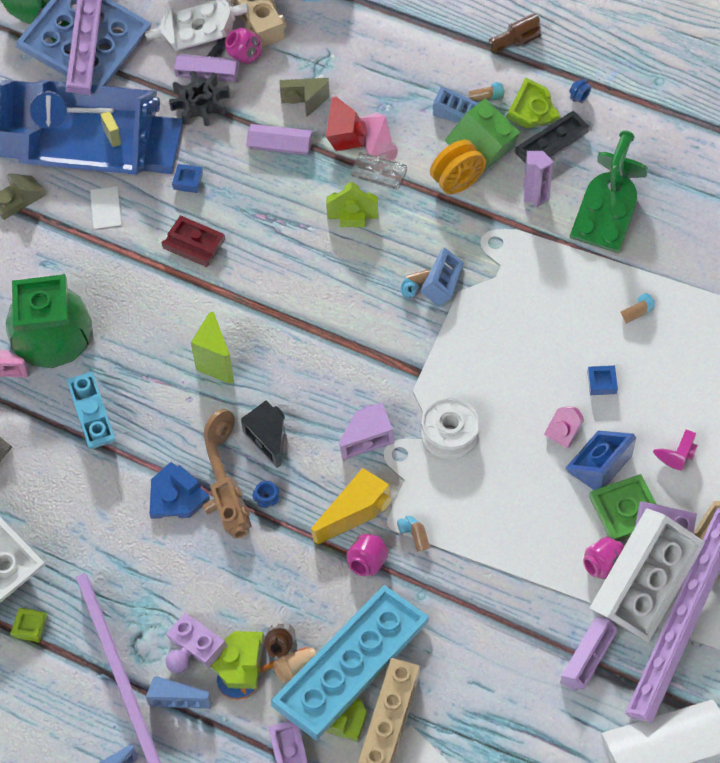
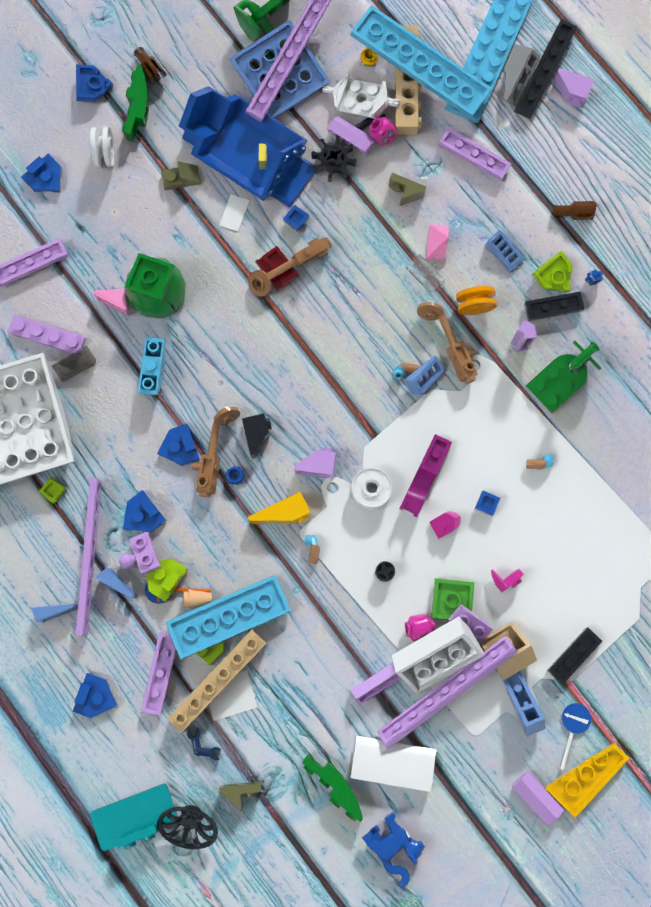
camera: 25 degrees right, 20 degrees up
(50, 110) = (230, 122): blue piece -> none
(168, 595) = (142, 514): none -> blue plate
(211, 351) = (247, 359): lime slope -> none
(228, 201) = (260, 281): none -> medium nougat piece
(279, 139) = (371, 217): lavender piece -> none
(279, 640) = (191, 583): reddish brown arm -> none
(344, 127) = (418, 230): slope -> none
(352, 206) = (391, 295): lime plate -> none
(365, 27) = (474, 154): none -> lavender plate
(367, 555) = (275, 549): dark pink head -> none
(412, 202) = (457, 352): none -> medium nougat piece
(487, 131) = (509, 281): bright green slope -> none
(493, 92) = (536, 249): arm -> none
(508, 381) = (425, 475): none -> magenta piece
(522, 508) = (387, 566): none -> black wheel
(602, 458) = (455, 557): blue slope -> none

